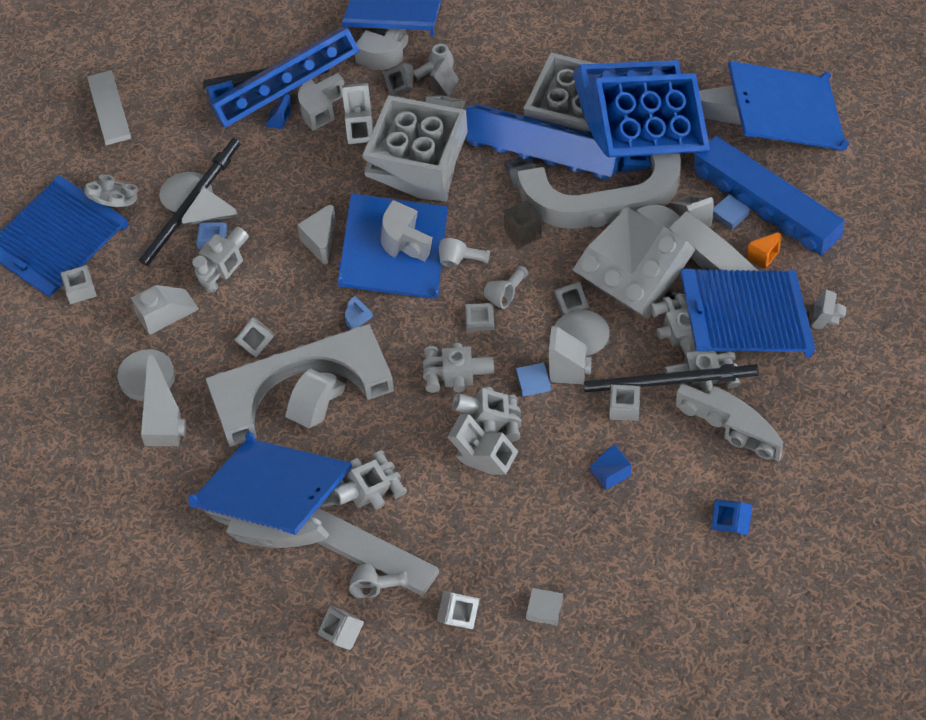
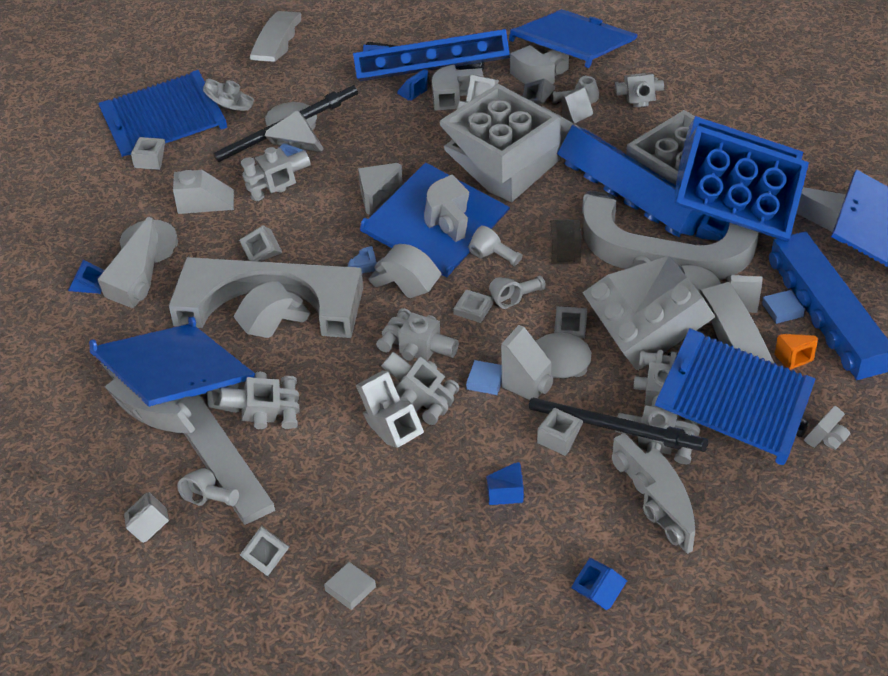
camera: 25 degrees right, 10 degrees down
(117, 435) = (86, 279): none -> blue slope
(408, 307) = (408, 268): none -> light grey brick
(489, 40) = (639, 88): none -> light grey piece

